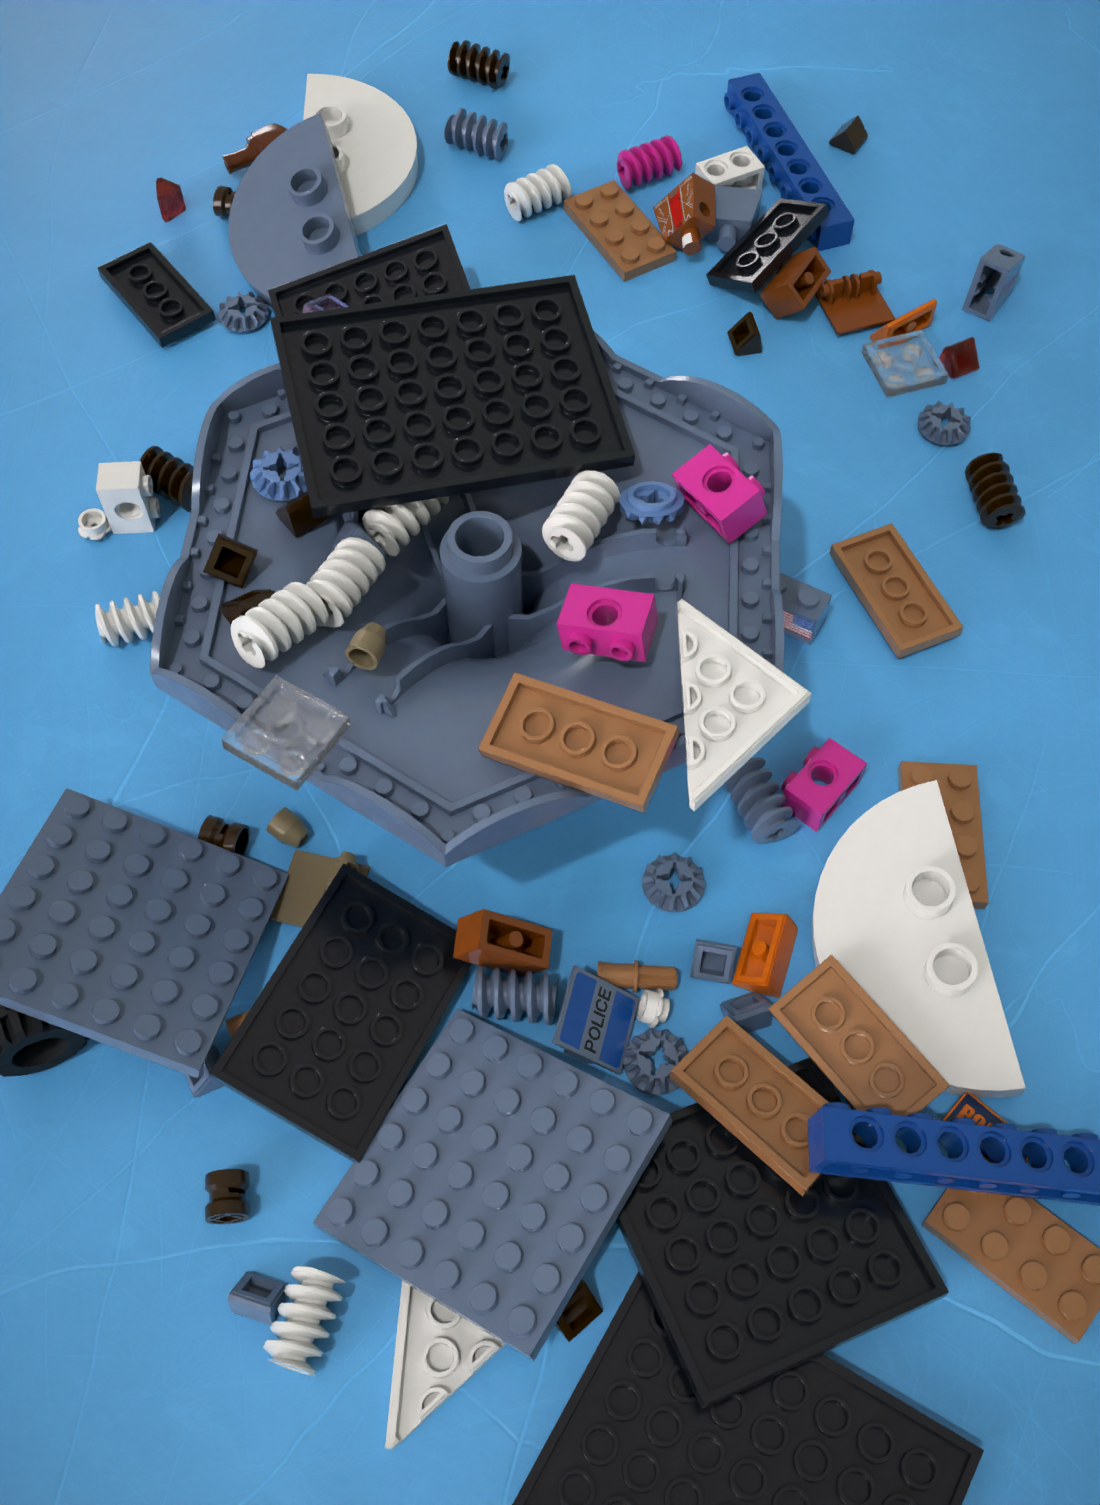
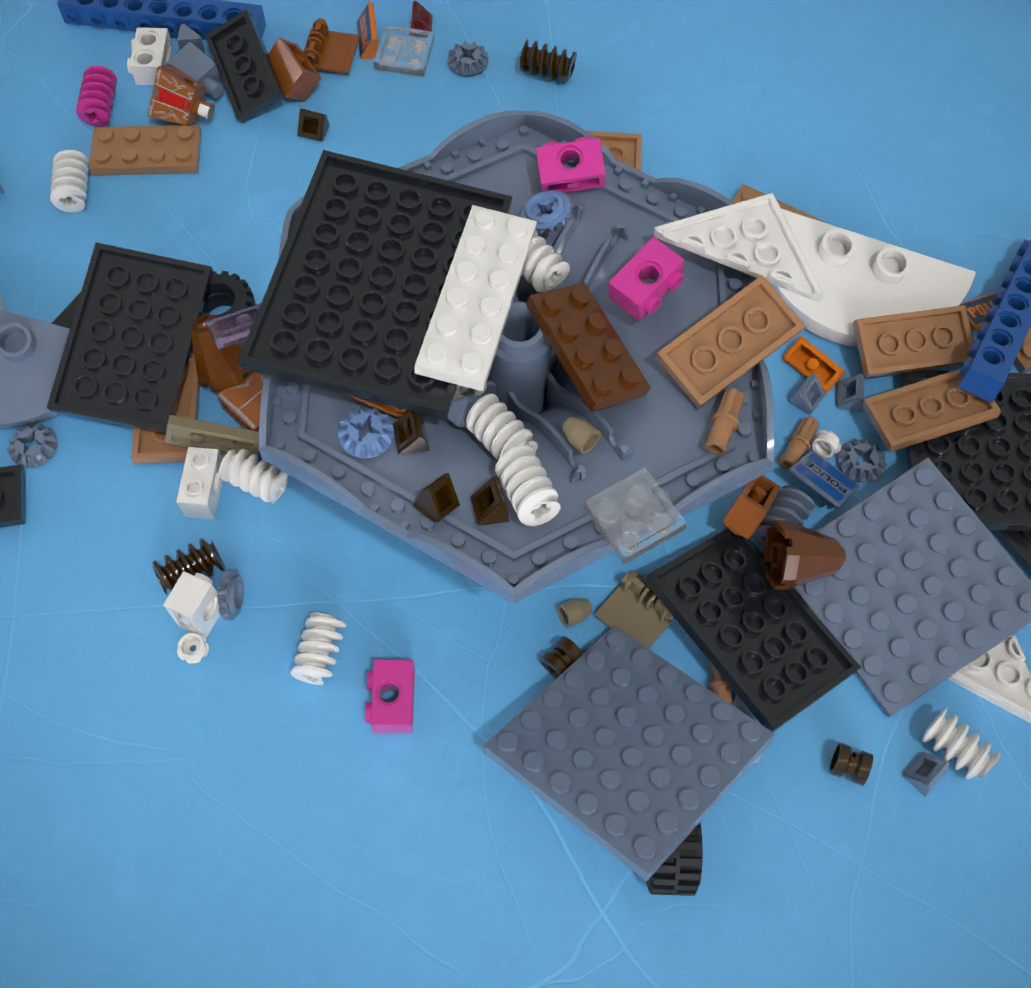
camera: 65 degrees left, 5 degrees up
(103, 720) = (396, 715): none -> dark pink brick
(166, 526) = (230, 594): none -> sand blue gear
(452, 1017) = (799, 555): none -> reddish brown cone
(469, 781) = (724, 422): none -> medium nougat axle
(471, 472) = (476, 298): none -> white plate
(490, 610) = (588, 346): none -> reddish brown plate
(770, 191) = (188, 35): none -> sand blue slope

